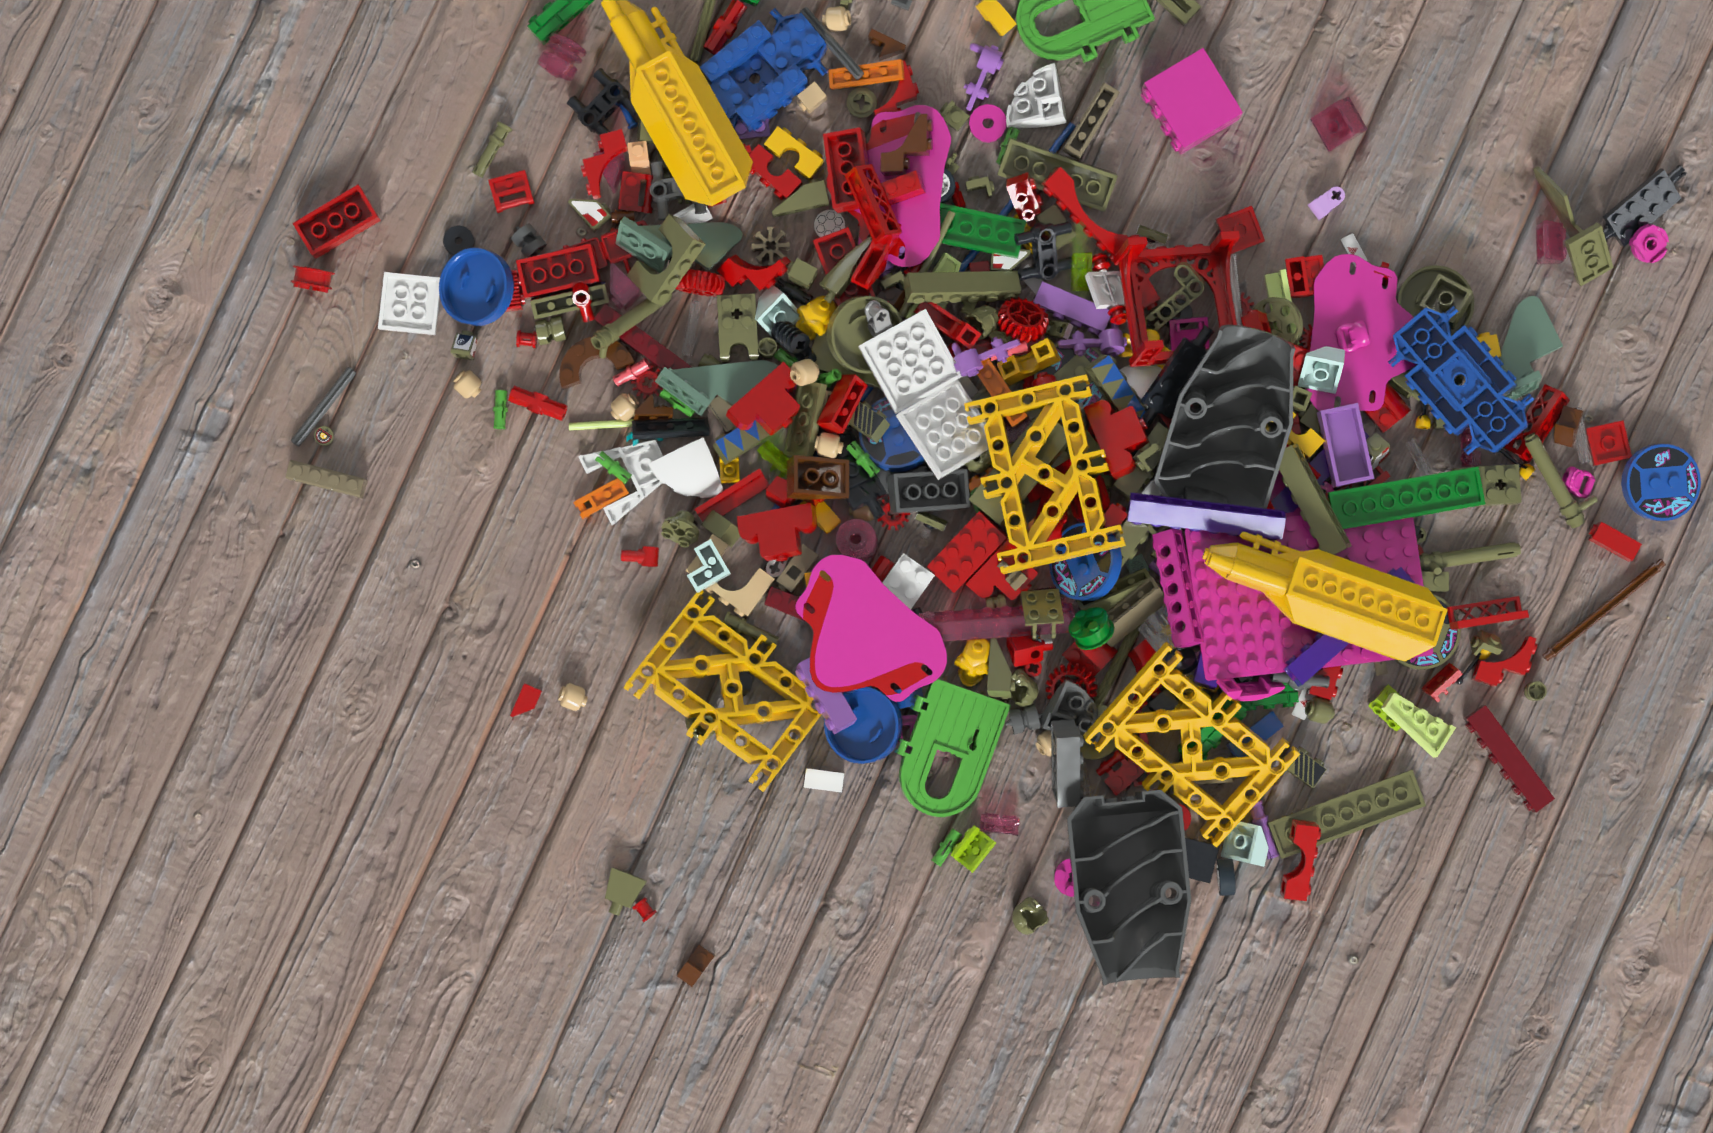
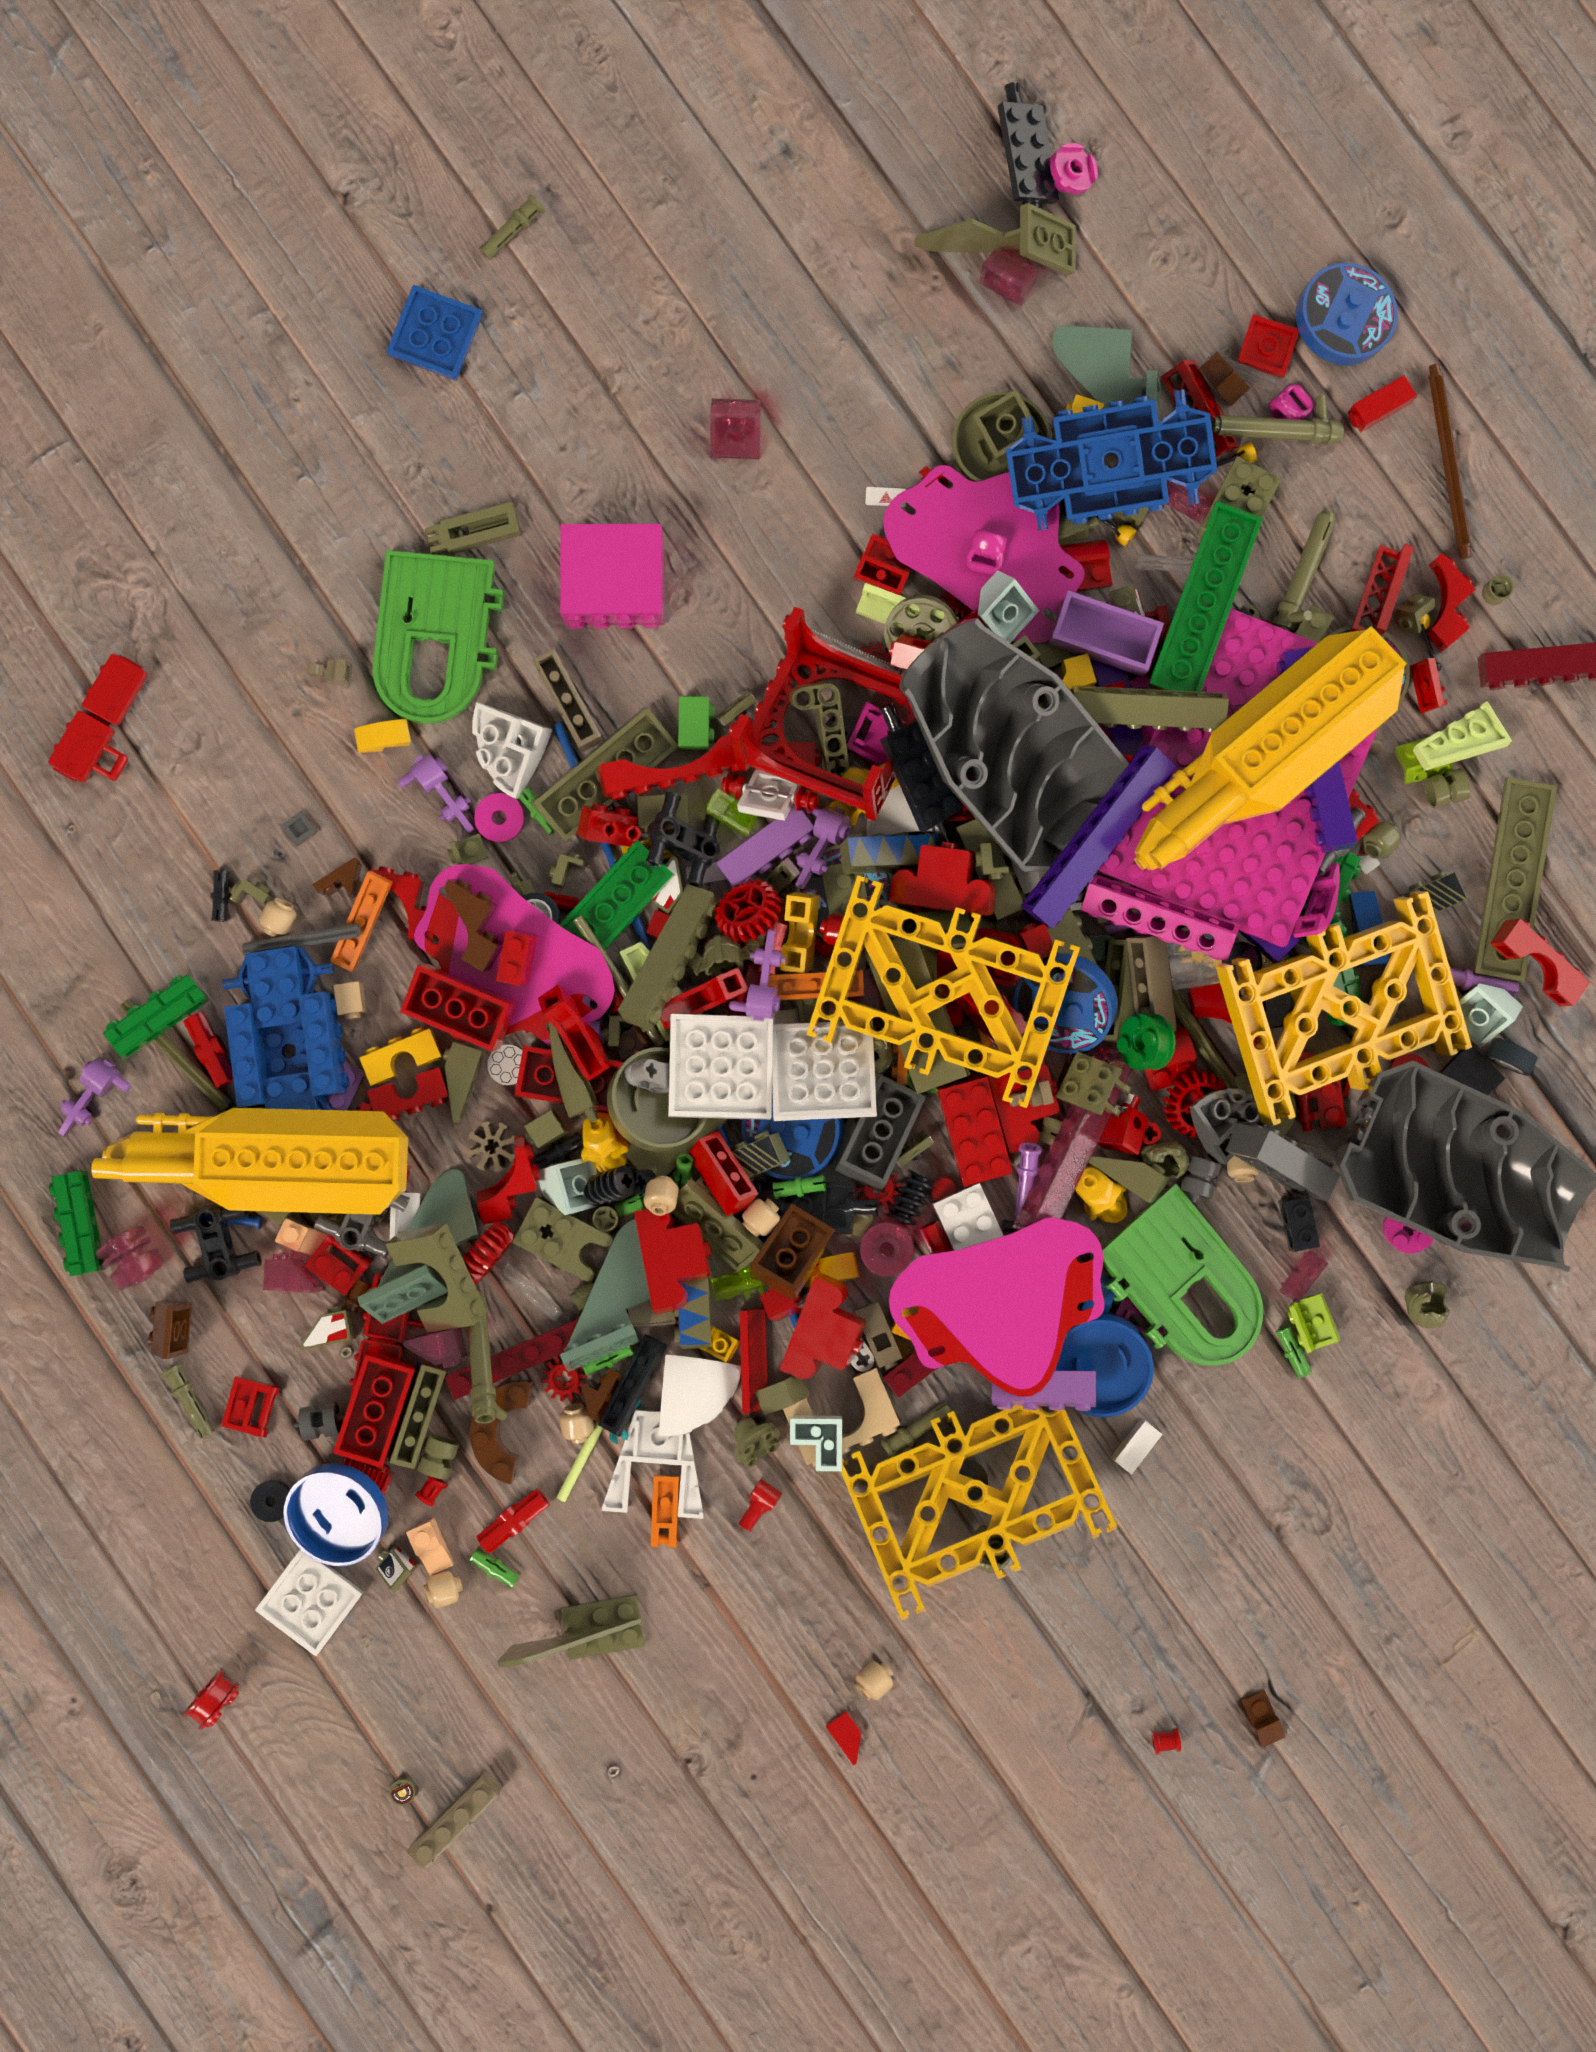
camera: 60 degrees left, 0 degrees up
(323, 406) = (368, 1772): dark grey axle -> none
(336, 221) = (163, 1632): red brick -> none
(490, 360) = (430, 1546): none -> light nougat arch
(499, 497) = (588, 1631): none -> olive piece
(532, 109) = (170, 1328): none -> reddish brown slope
(583, 302) = (427, 1403): red pin -> none
(612, 145) = (279, 1300): red arch -> none
(613, 467) = (638, 1478): bright green pin -> none
(623, 890) = (1129, 1752): olive torso -> none
(631, 372) = (541, 1391): coral pin -> none
(869, 98) = (390, 934): olive gear -> none
(869, 203) = (511, 1005): red fence -> none
(898, 537) = (911, 1198): none -> black piece
(917, 555) = (942, 1188): none -> red tile
(962, 601) = (1027, 1171): none -> medium lavender pin
(1032, 801) = (1299, 1224): none -> black brick
(1126, 213) = (695, 723): none -> bright green brick
(1247, 225) = (781, 600): red plate -> none
(1324, 204) = (816, 496): lavender piece -> none
(1380, 733) = (1452, 787): none -> olive wheel

